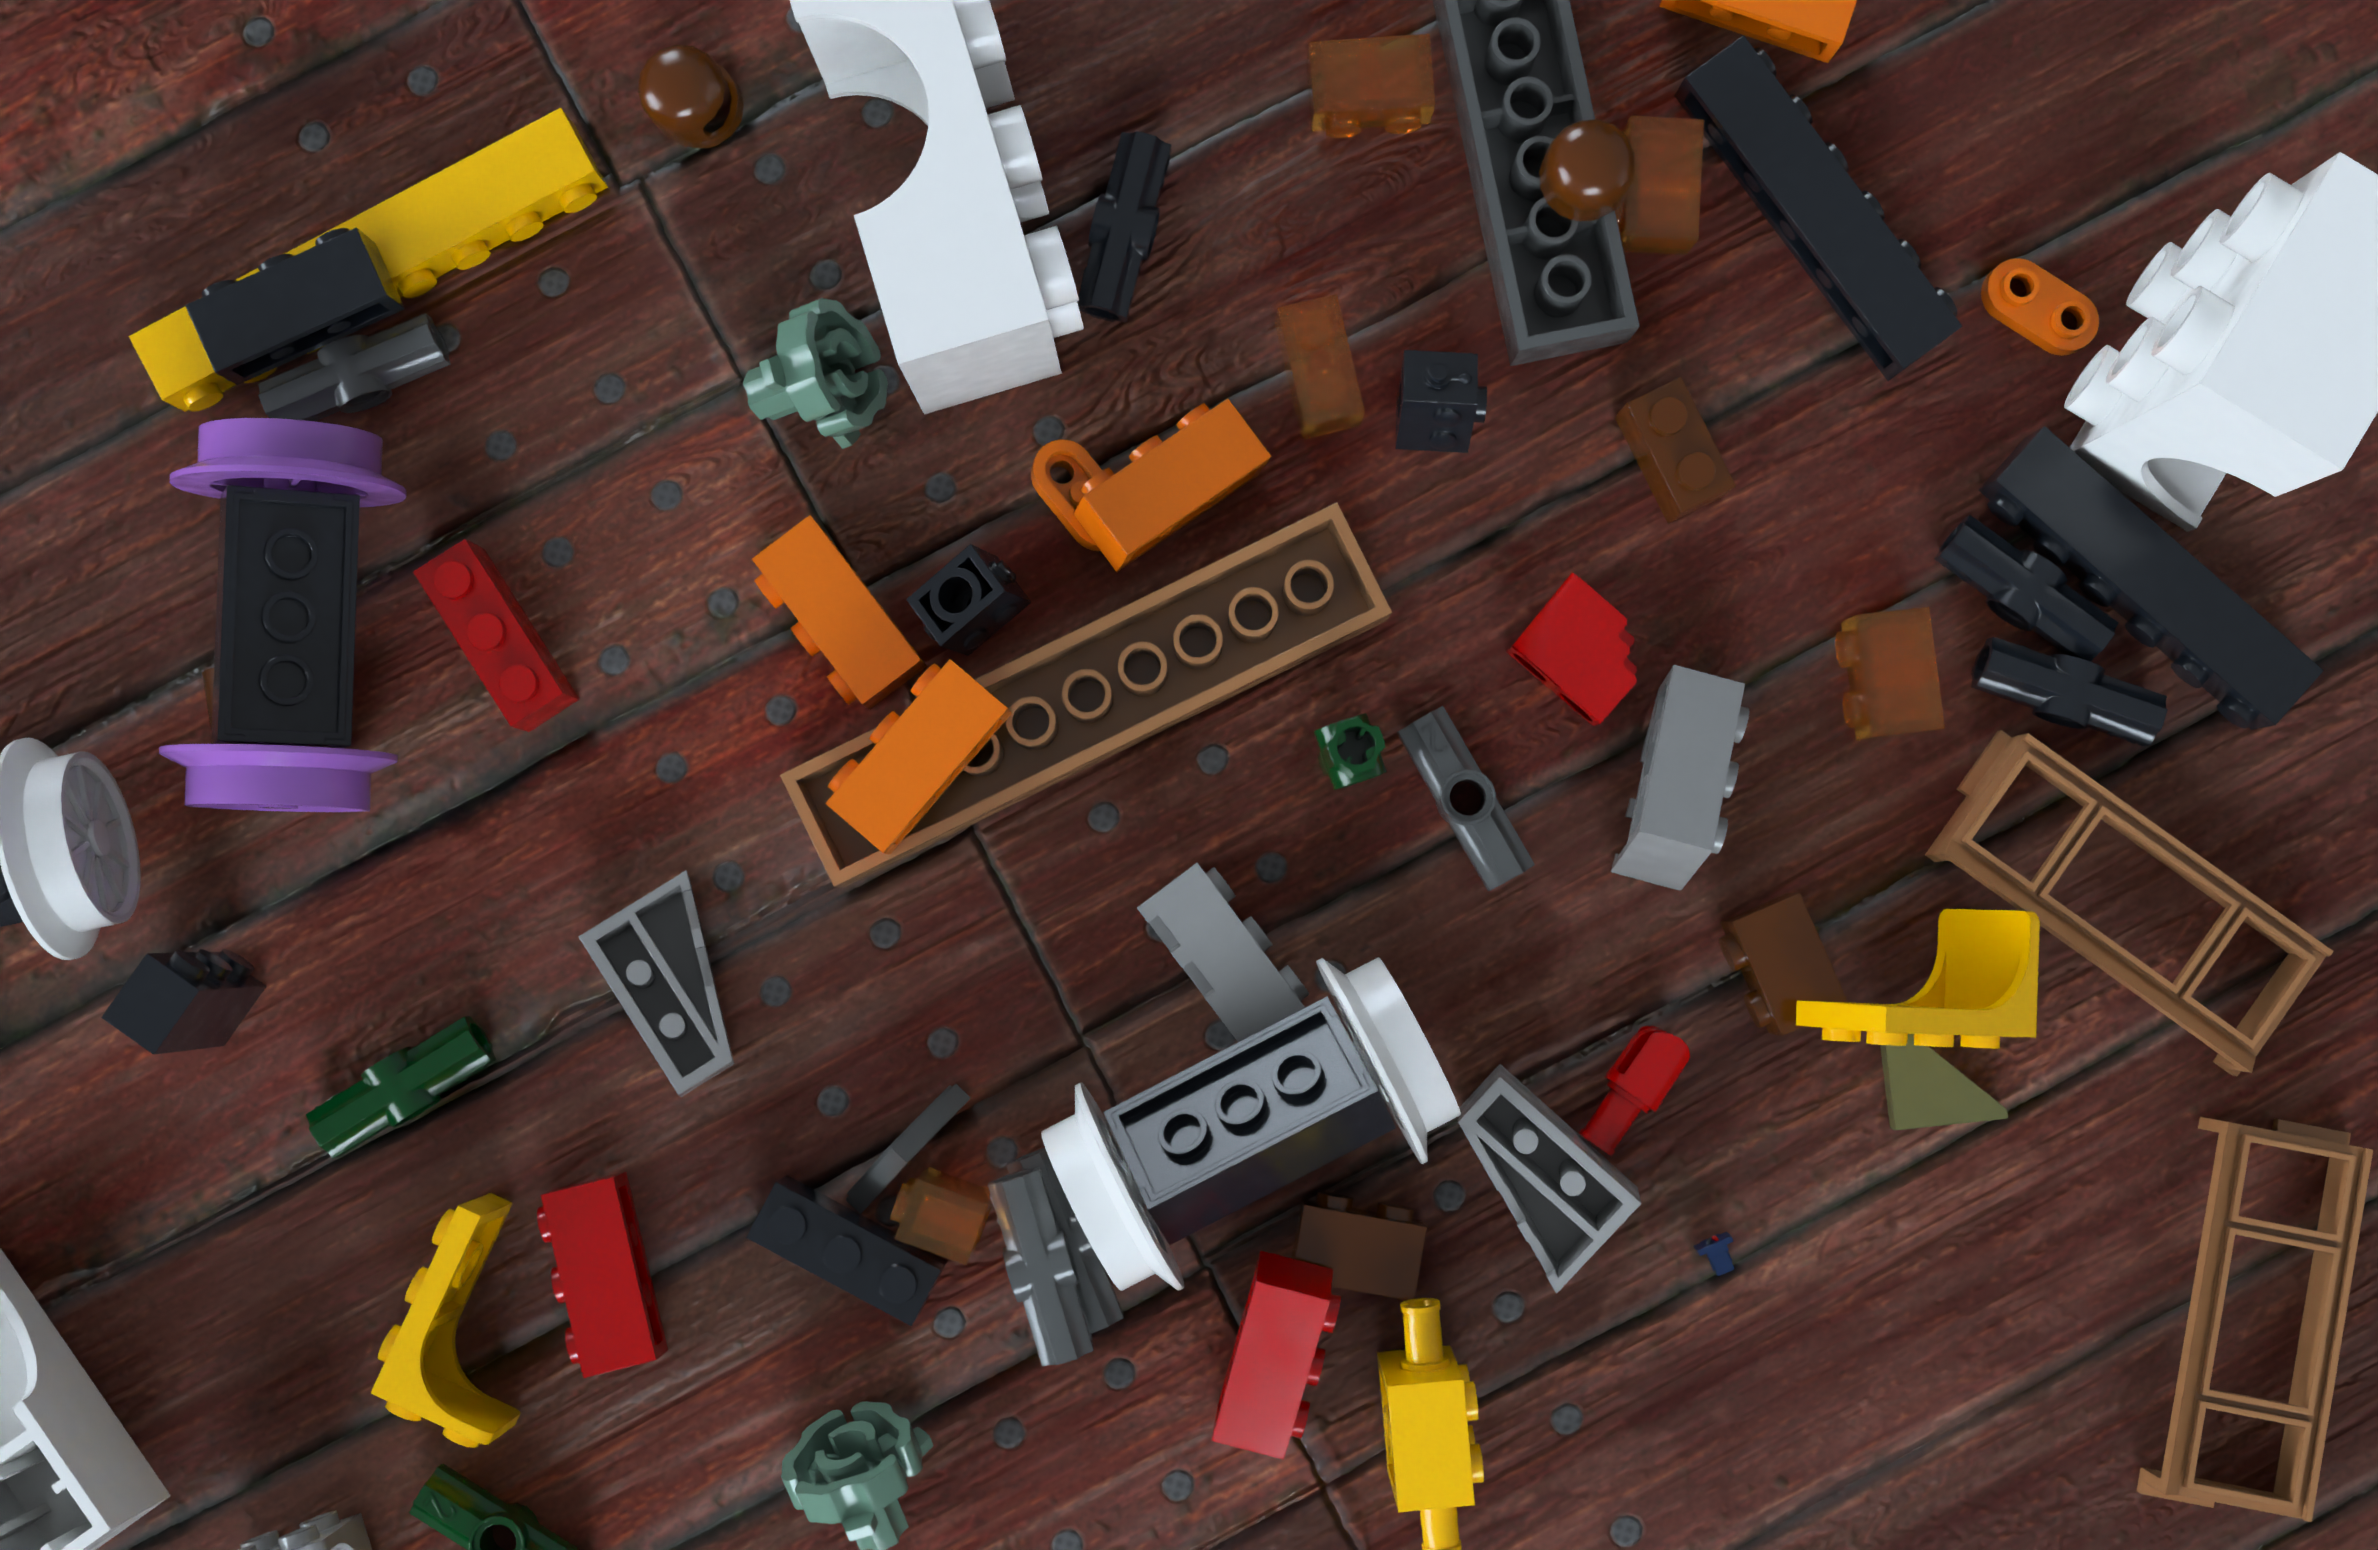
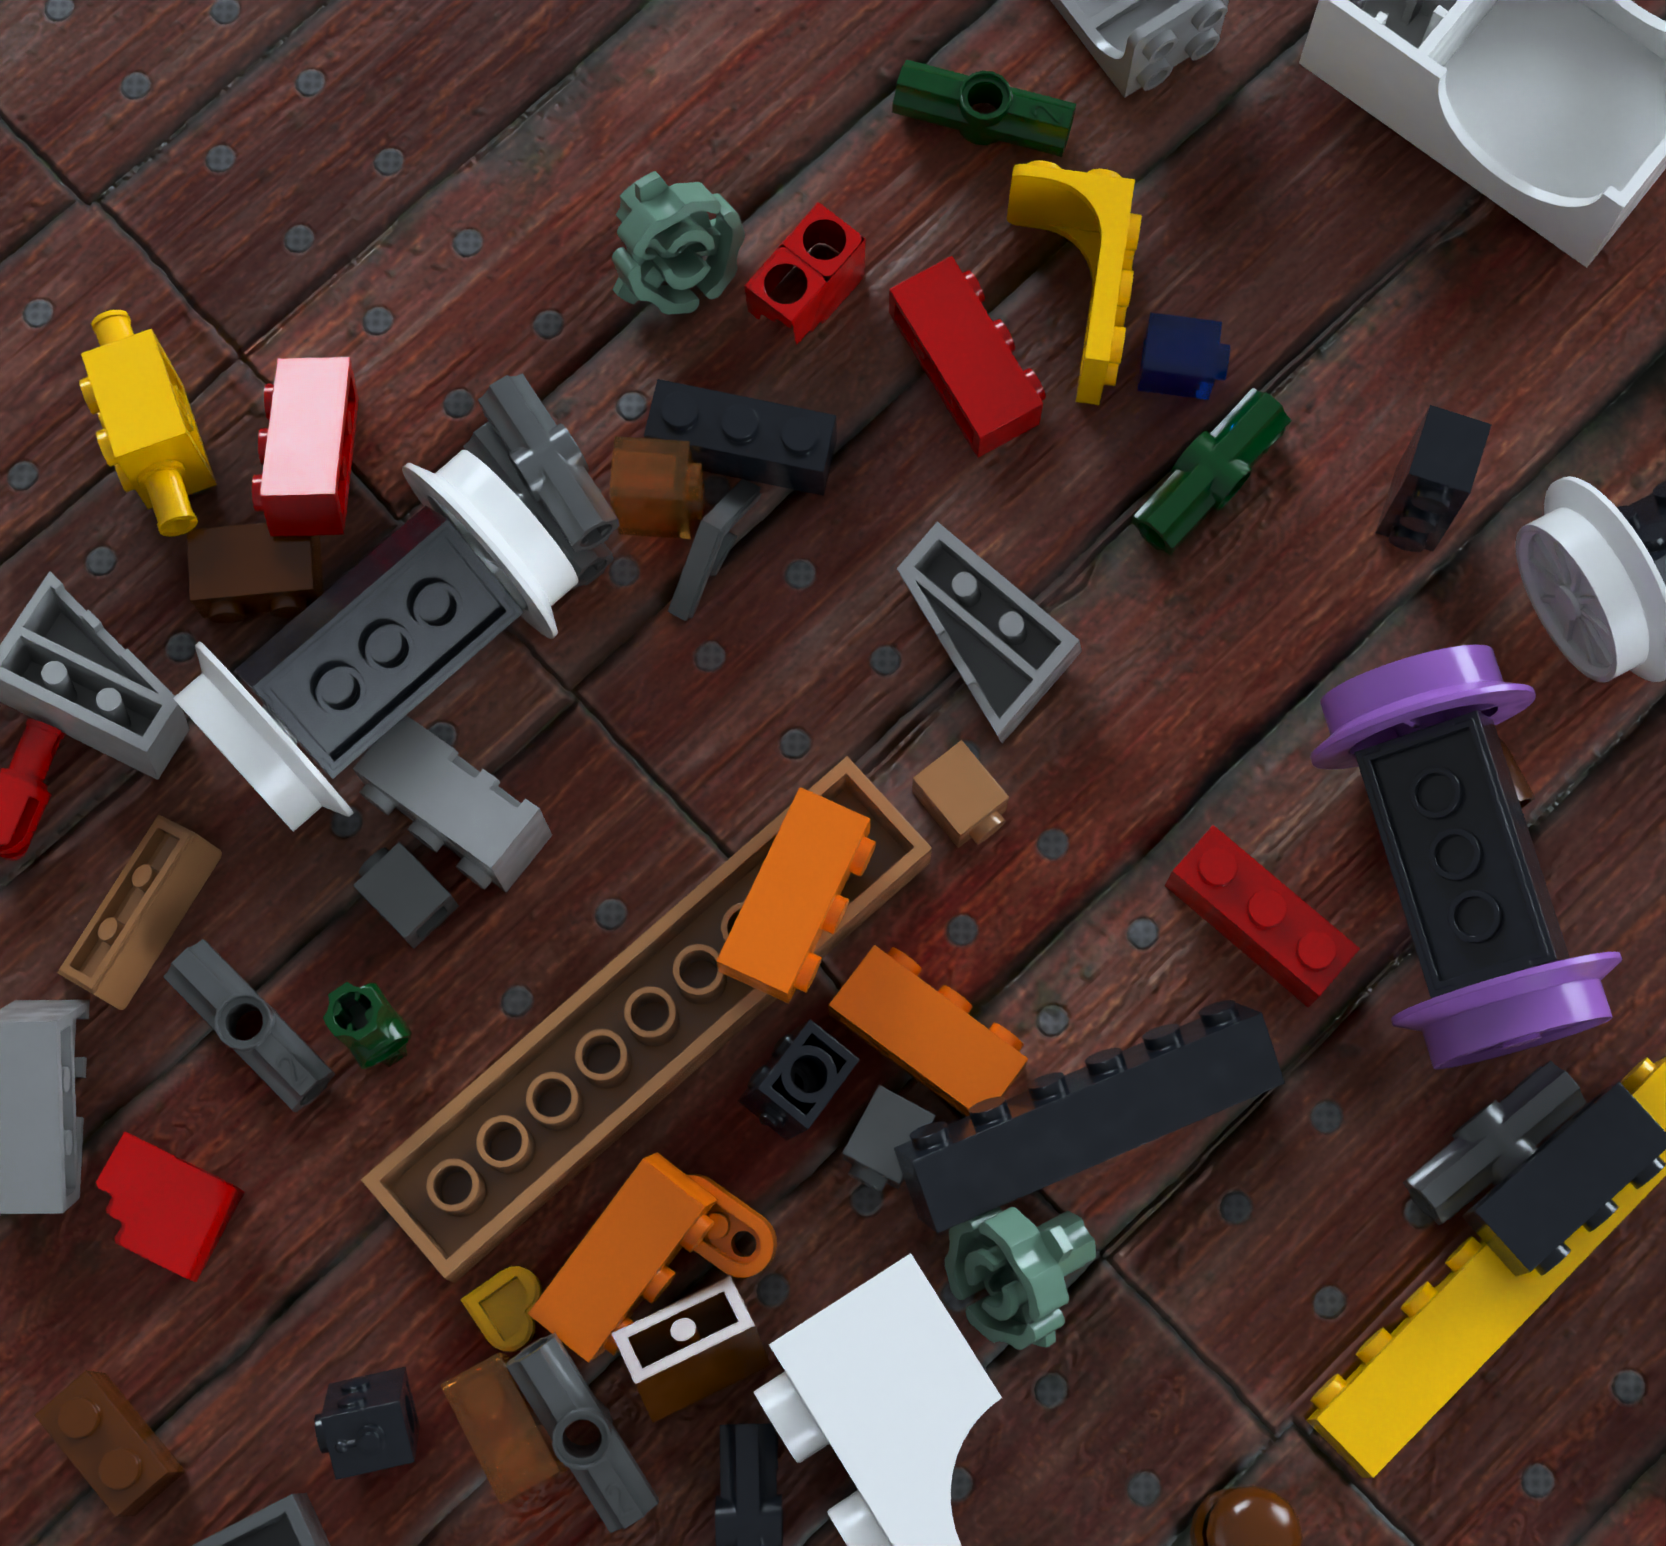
camera: 165 degrees right, 10 degrees down
(391, 1213) = (1182, 356): none -> clear blue brick
(711, 490) = (1088, 1114): none -> black brick
(735, 1414) = (820, 296): none -> red piece
(740, 830) = (961, 796): none -> medium nougat brick
(904, 527) = (881, 1128): none -> dark grey brick
(1132, 387) = (691, 1349): none -> reddish brown brick
(1256, 370) = (603, 1467): none -> dark grey piece
(1291, 884) = (404, 893): none -> dark grey brick
(1293, 479) = (503, 1306): none -> yellow tile
(1545, 940) = (140, 912): none -> medium nougat slope

